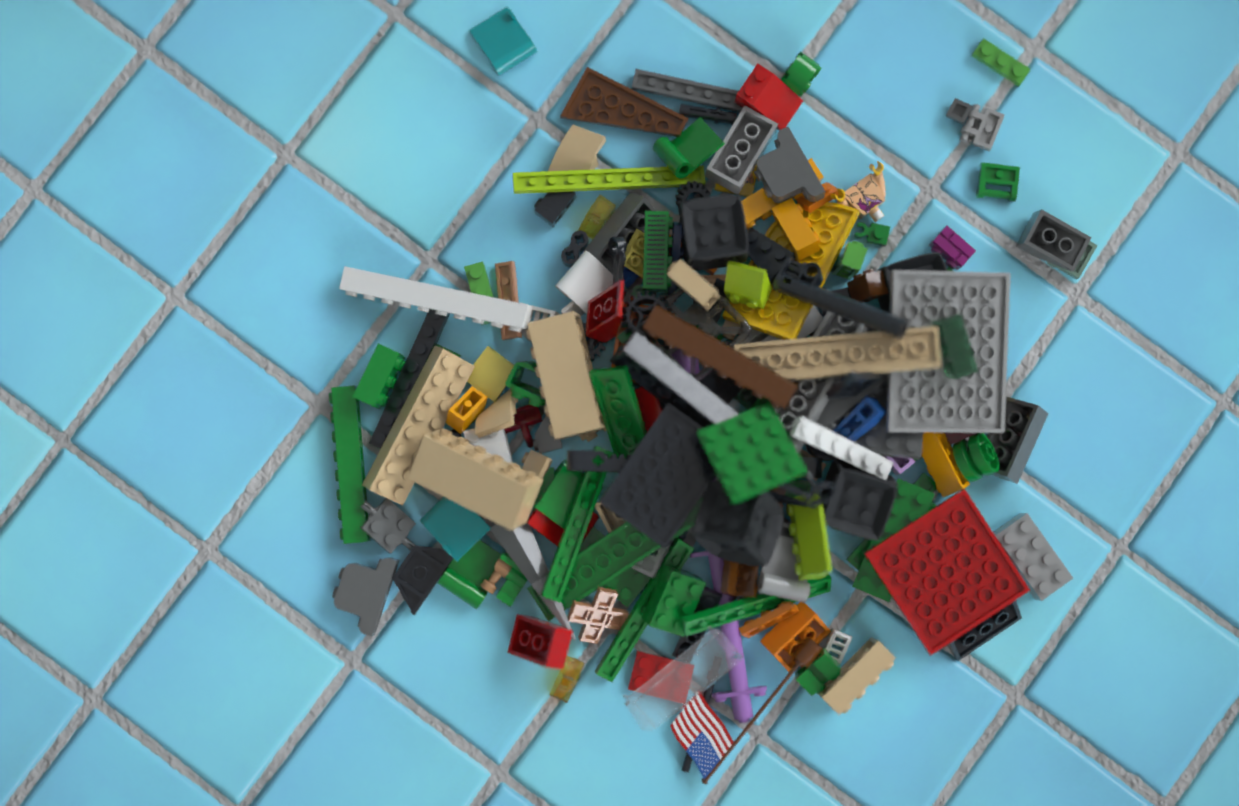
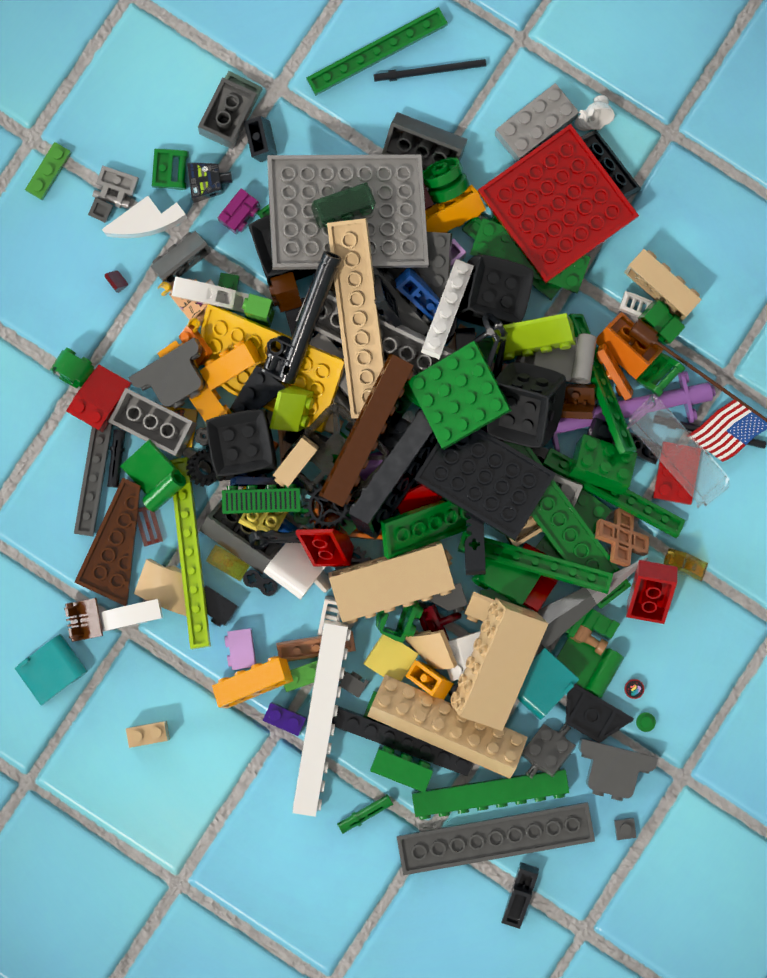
camera: 85 degrees left, 0 degrees up
(247, 488) = (520, 895): none -> black slope
(305, 467) = (495, 838): none -> dark grey plate
(305, 598) = (625, 828): none -> dark grey plate
(337, 335) = (364, 814): none -> green pin
(410, 627) = (645, 722): none -> green plate
(432, 130) = (147, 734): none -> tan brick
(438, 264) = (284, 719): none -> dark purple brick
(444, 617) = (634, 689): none -> tile
(469, 334) = (353, 683): none -> dark grey brick
(475, 233) = (252, 682): none -> light orange brick
(510, 226) = (241, 649): none -> lavender brick
(549, 74) = (84, 619): none -> hinge
(549, 114) = (131, 615): none -> white slope
(638, 150) = (156, 525): none -> clear red tile
(767, 663) = (657, 371): none -> green plate
(869, 208) = (208, 294): none -> white slope
(886, 123) = (116, 280): none -> slope
(906, 187) = (181, 257): none -> dark grey slope
(946, 154) = (144, 220): none -> white slope
(984, 217) = (206, 180): none -> torso
(1027, 272) = (260, 138): none -> black brick
(1036, 618) = (596, 115): none -> white hair
(1086, 412) = (393, 75): none -> black bar
(1112, 397) = (377, 51): none -> green plate

